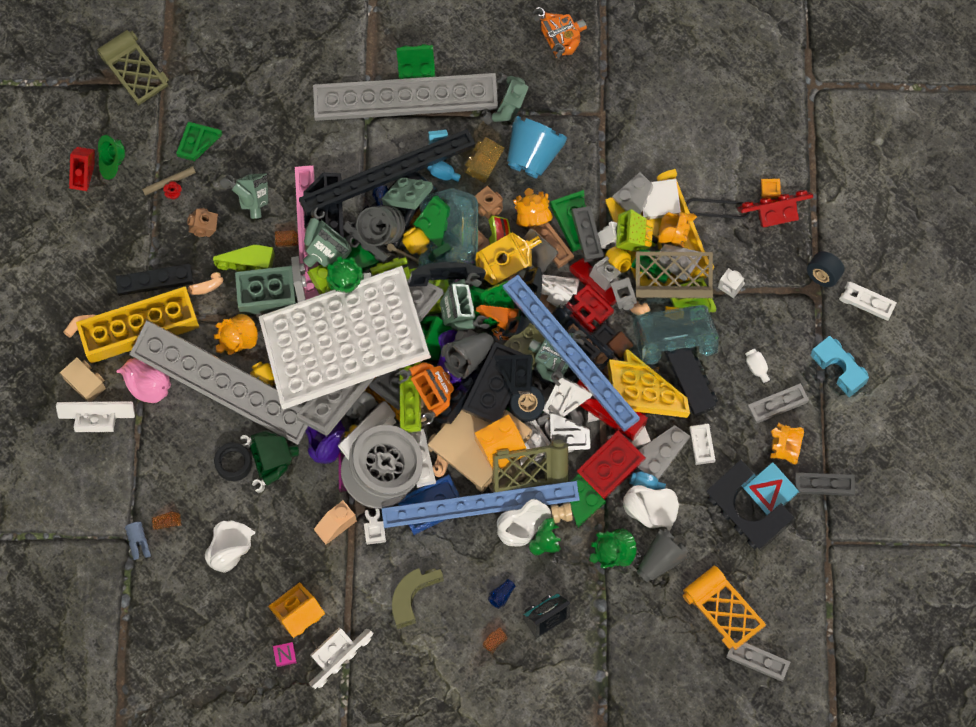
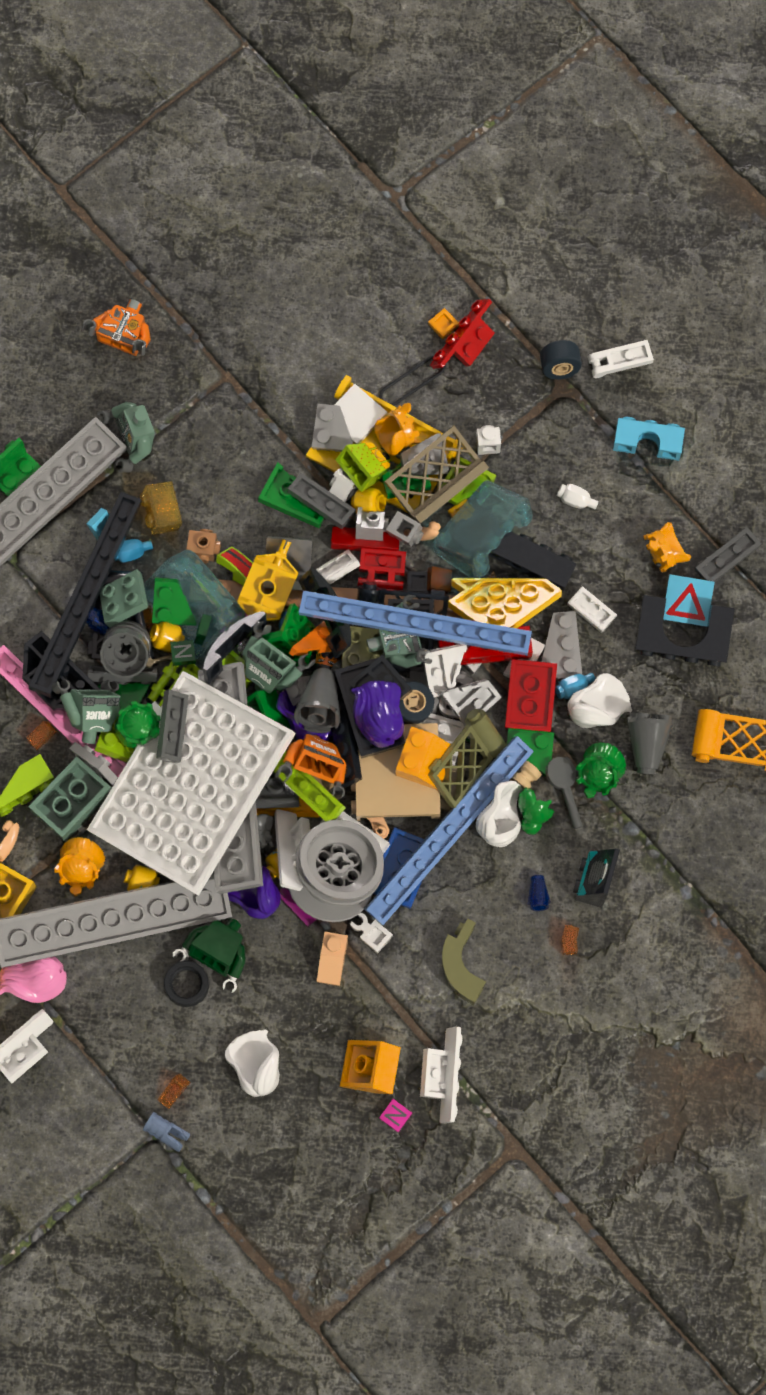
camera: 45 degrees left, 5 degrees up
(362, 293) = (172, 726): none -> dark grey plate
(414, 257) = (183, 653): none -> dark green tile
(495, 388) = (378, 712): none -> dark purple piece
(532, 209) = (248, 518): light orange hair -> none
(533, 146) = (198, 459): dark azure cone -> none
(552, 237) = (276, 528): medium nougat plate -> none
(556, 295) = (346, 580): white plate -> none
(585, 533) = (562, 775): none -> dark grey piece
(778, 403) = (625, 517): light grey plate -> none

